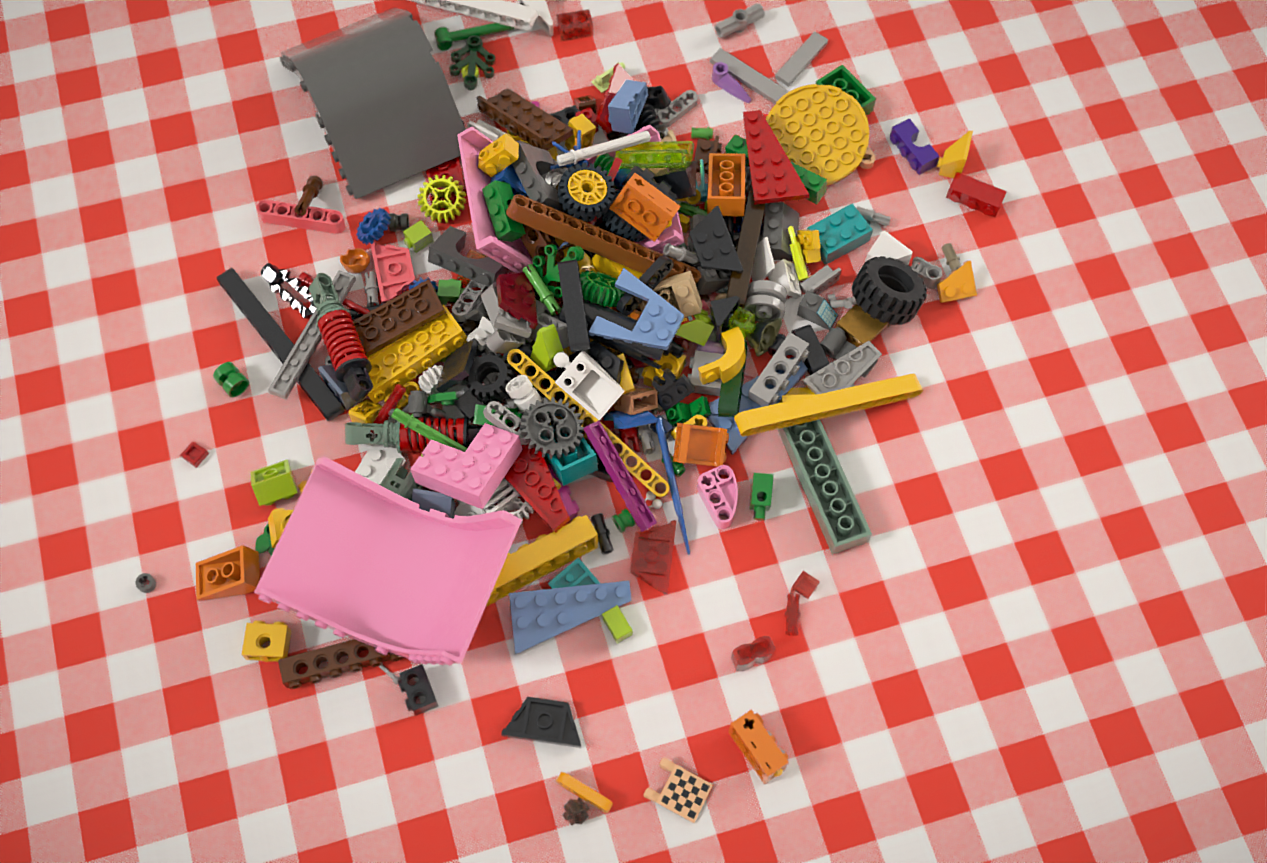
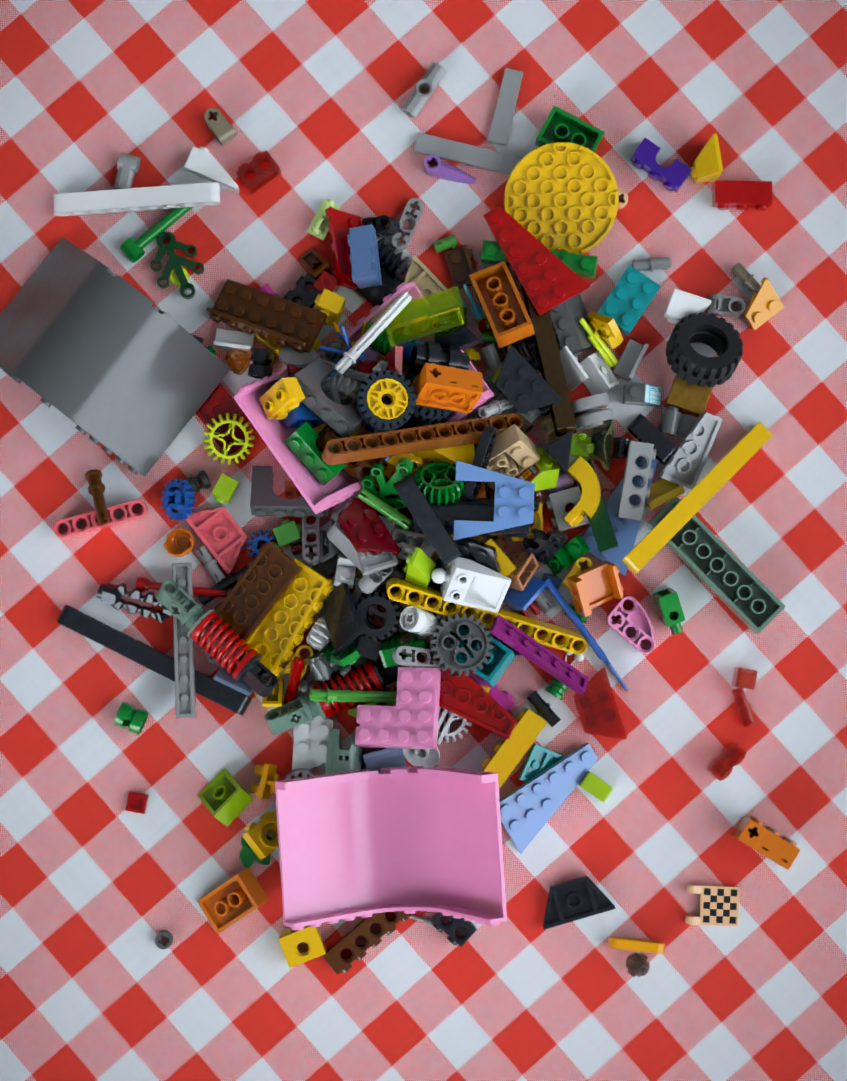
camera: 25 degrees left, 20 degrees up
(847, 303) = (669, 381): light grey arm -> none

